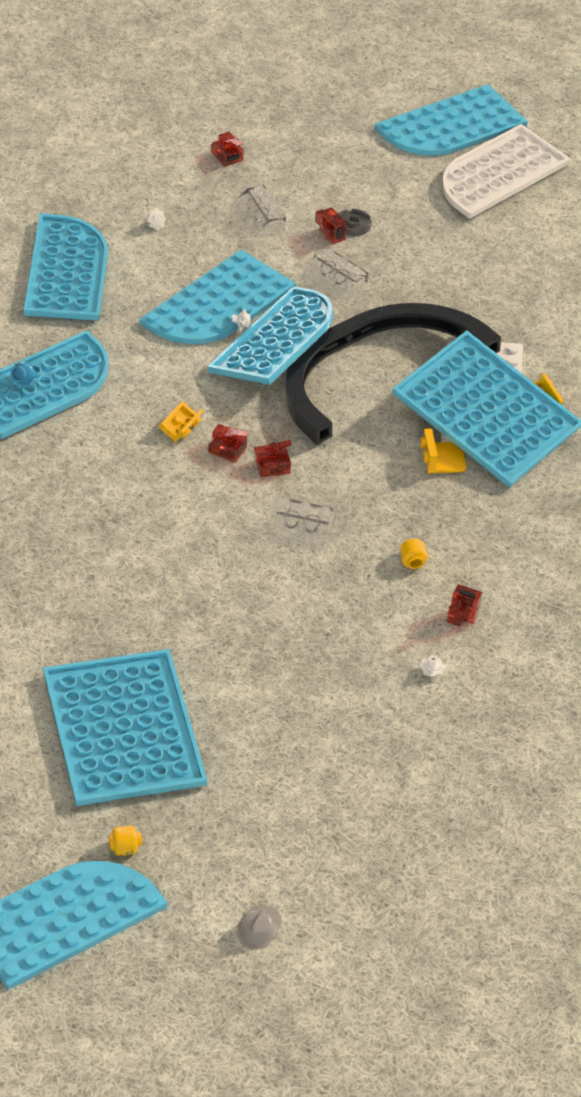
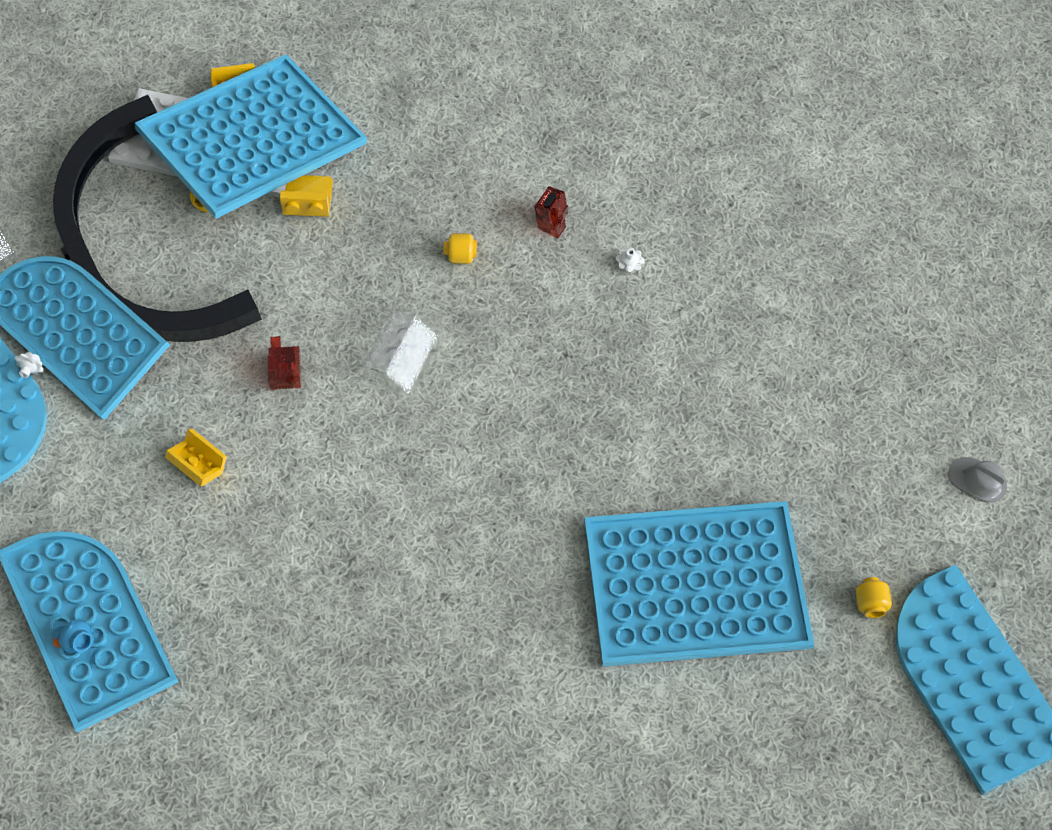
camera: 80 degrees left, 15 degrees up
(228, 443) = (246, 410): clear red piece -> none

